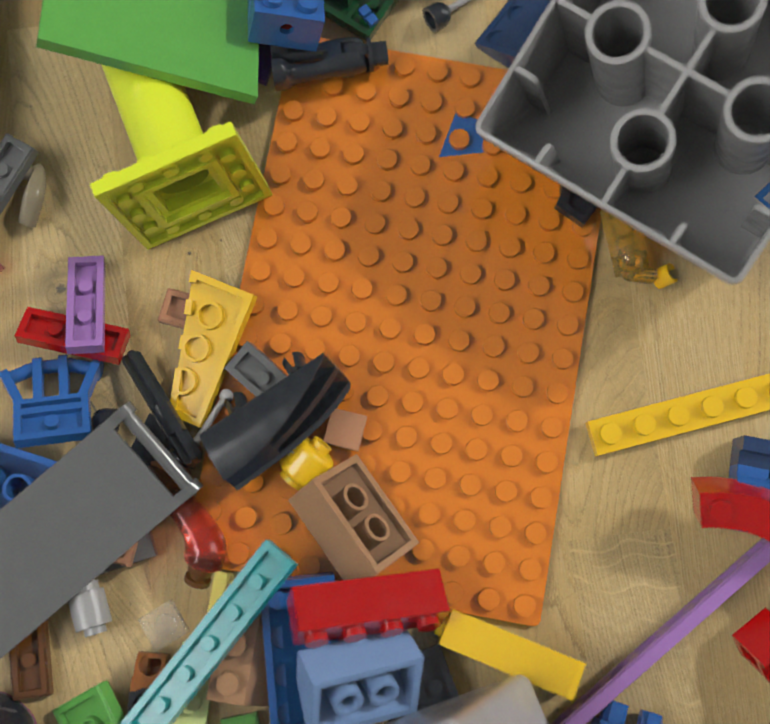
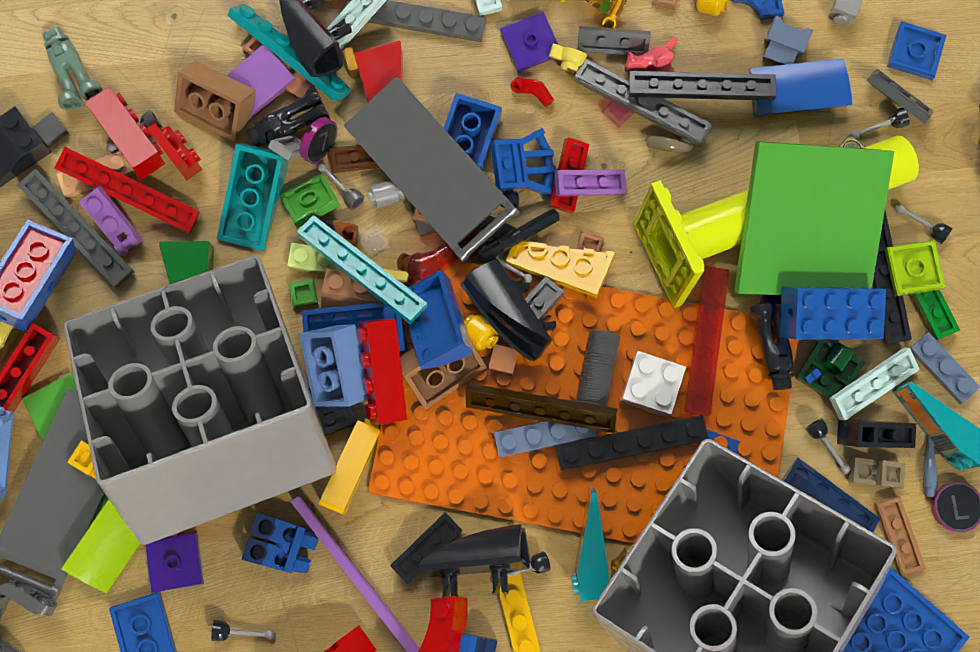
camera: 90 degrees right, 0 degrees up
(93, 662) = (351, 197): none -> hinge
(304, 520) = (440, 329): none -> blue slope
(329, 149) = (706, 341): none -> clear red plate
(372, 295) = (597, 376): none -> dark grey piece
(382, 220) = (652, 384): none -> white brick
(418, 374) = (541, 407): none -> dark brown plate
(452, 371) = (538, 437): none -> sand blue plate
(462, 254) = (631, 442): none -> black plate
(616, 539) = (436, 536): none -> black plate
(623, 445) = (482, 552): none -> black piece
(625, 306) = (591, 559): none -> teal slope
(631, 381) = (538, 563): none -> black hinge

